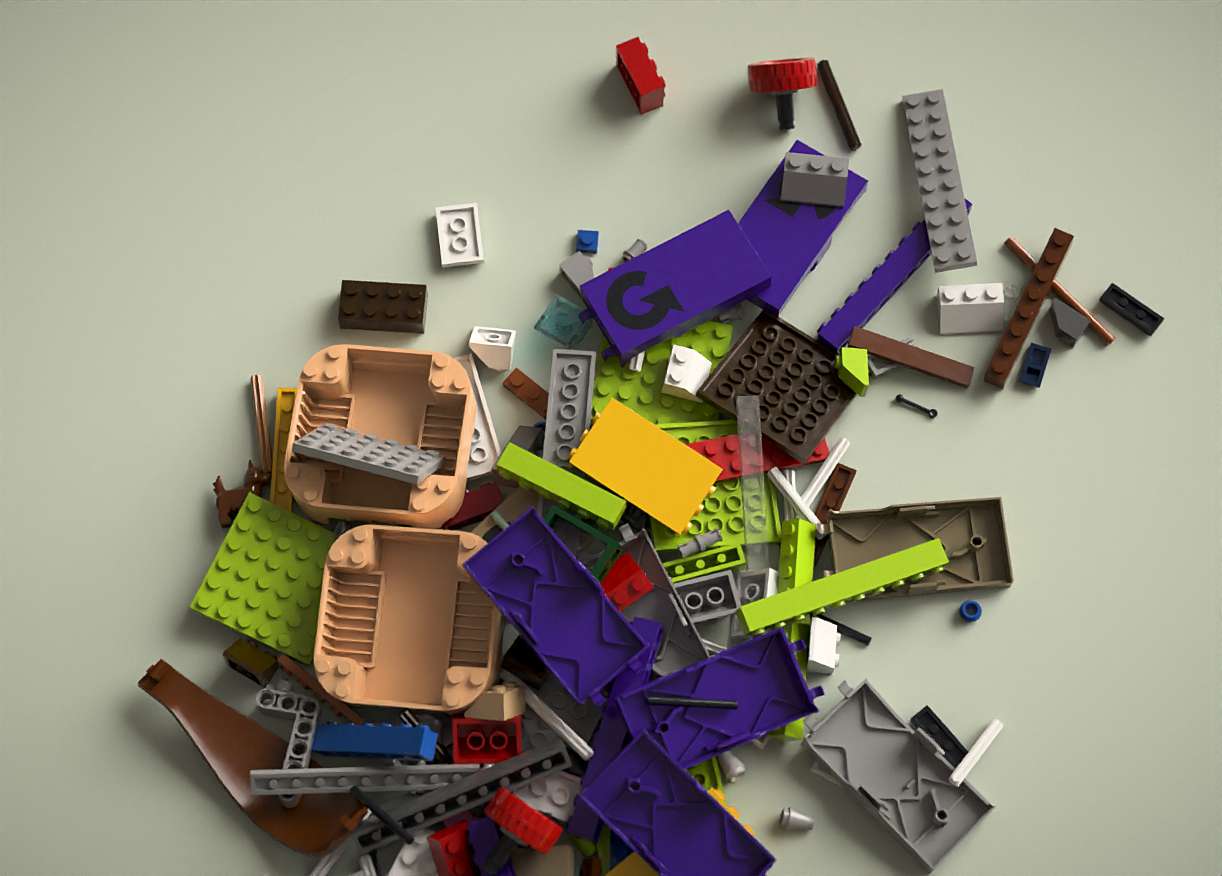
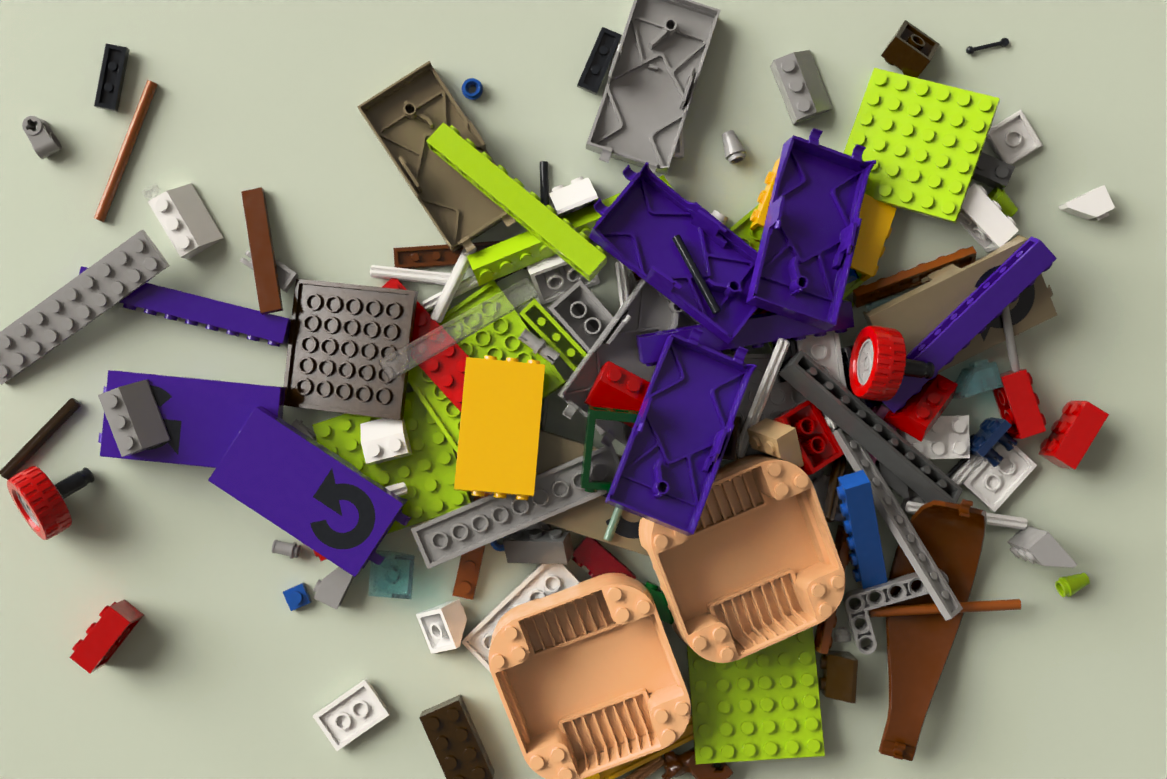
camera: 125 degrees left, 20 degrees up
(251, 800) = (926, 609): none -> dark orange piece
(341, 528) = (686, 661): light grey bush -> none
(369, 453) = (619, 677): light grey plate -> none
(382, 815) = (927, 487): black bar -> none
(561, 486) = (557, 496): lime brick -> none
(853, 369) = (302, 293): lime slope -> none
(932, 413) = (304, 208): black hinge -> none
(975, 752) = (599, 23): white axle -> none
(1028, 308) = (158, 167): reddish brown brick -> none
(1035, 365) = (211, 139): dark blue slope -> none
(1067, 323) = (155, 128): dark grey slope -> none
(1104, 227) = (43, 139): none -> light grey piece

